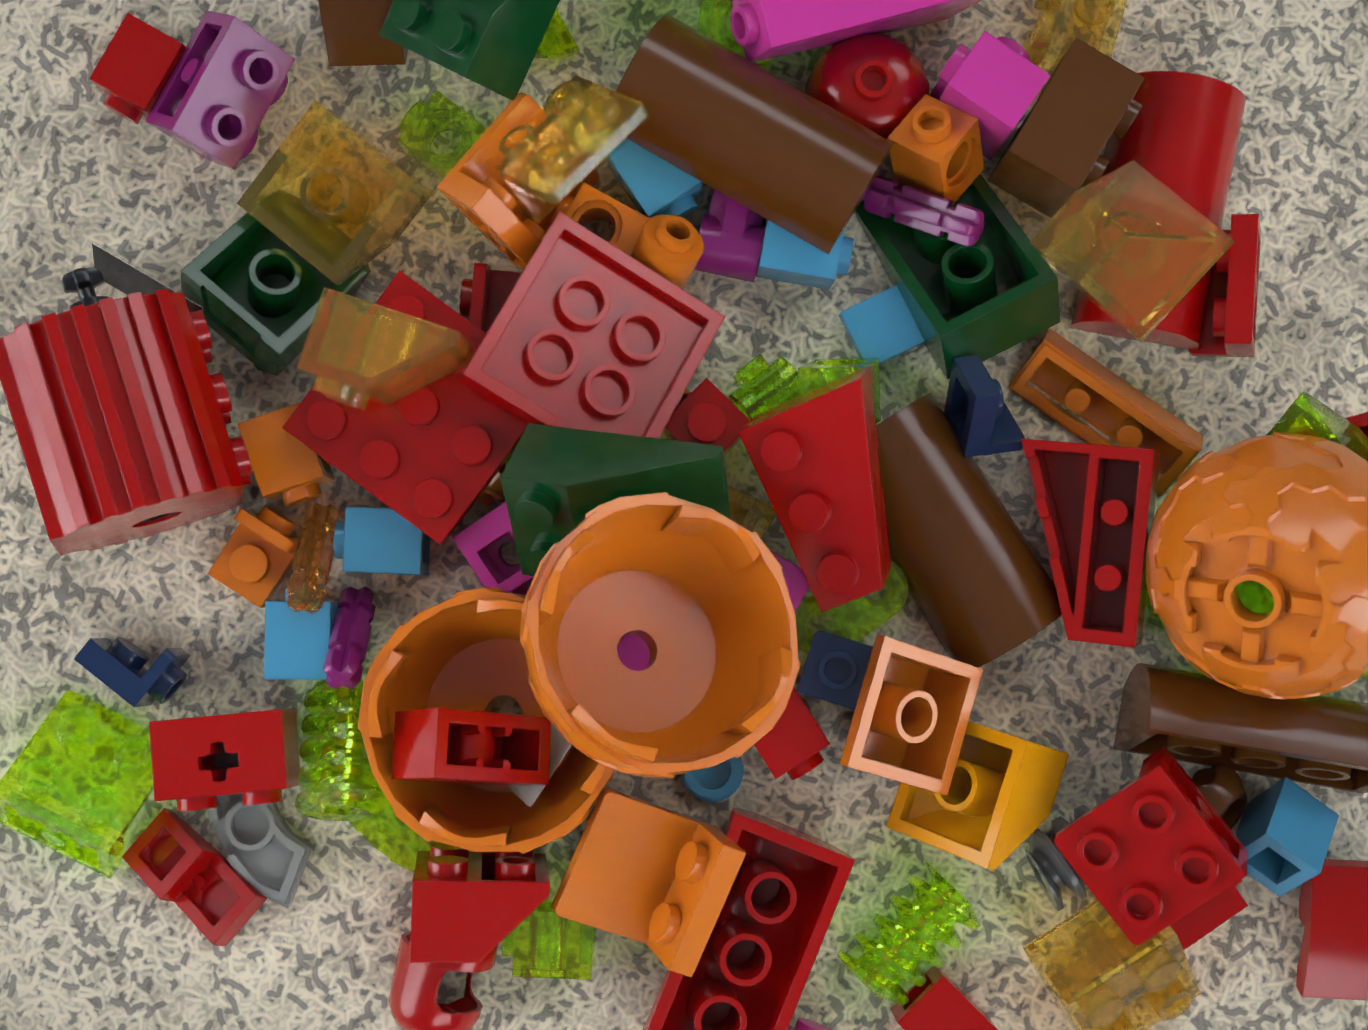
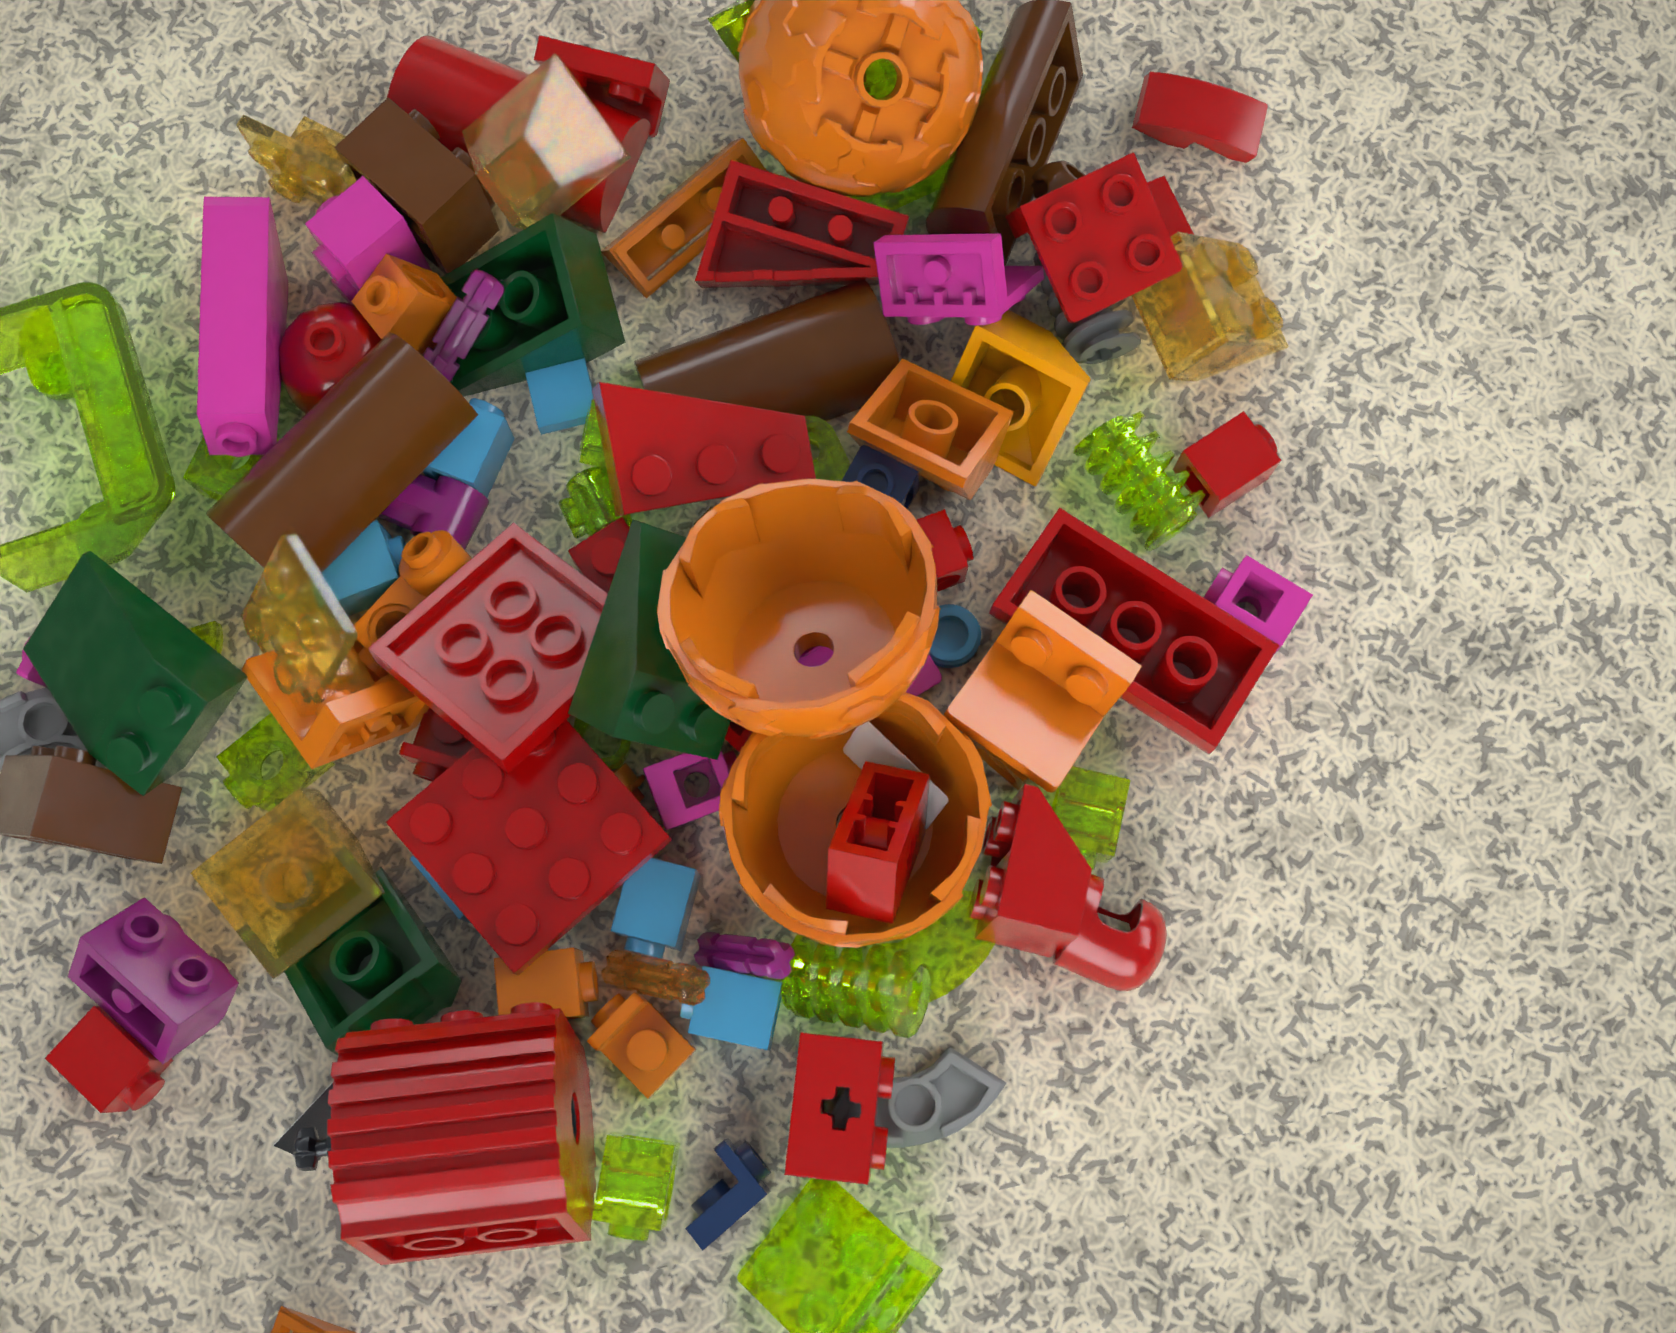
camera: 75 degrees left, 10 degrees down
(127, 581) = (635, 1185): none -> clear neon green brick
(194, 876) = (957, 1177): red slope -> none
(375, 351) = (457, 833): clear yellow slope -> none
(978, 410) = (657, 320): dark blue bracket -> none
(1070, 707) = (949, 277): none -> dark pink bracket
(1285, 836) = (1107, 129): dark azure brick -> none

